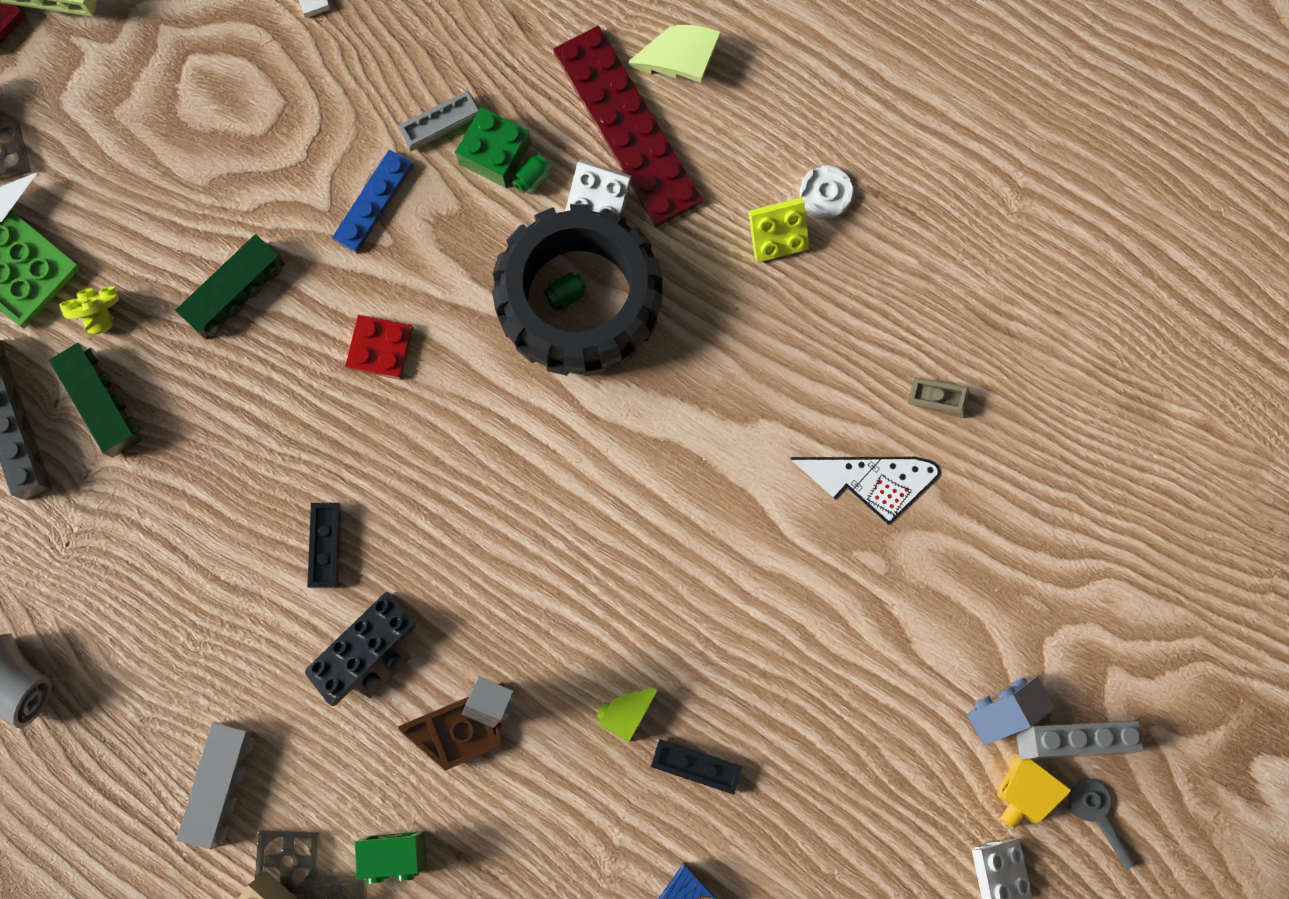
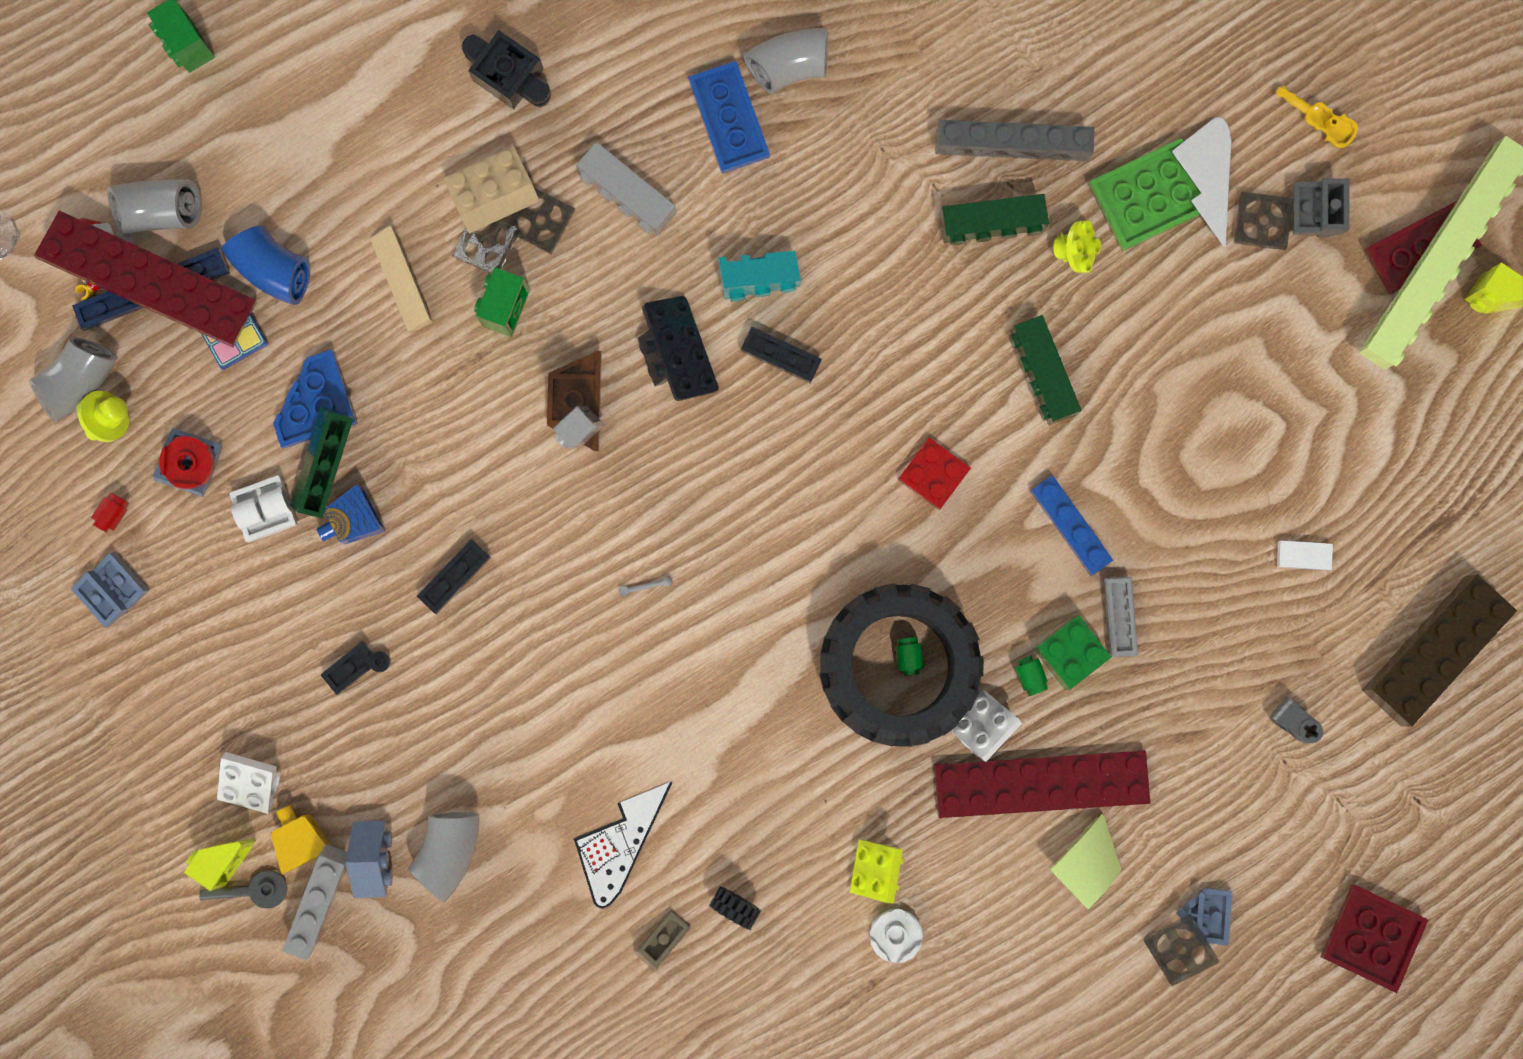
camera: 115 degrees right, 5 degrees up
(94, 715) = (729, 117): none -> blue plate
(251, 604) = (759, 275): none -> teal wedge
(625, 713) = (524, 539): lime slope -> none
(630, 590) = (624, 591): none -> light grey hinge
(834, 824) = (354, 666): none -> black hinge
(877, 340) = (735, 908): none -> black tyre
(965, 637) = (446, 852): none -> light grey brick
(1097, 864) = (217, 864): none -> neon yellow slope

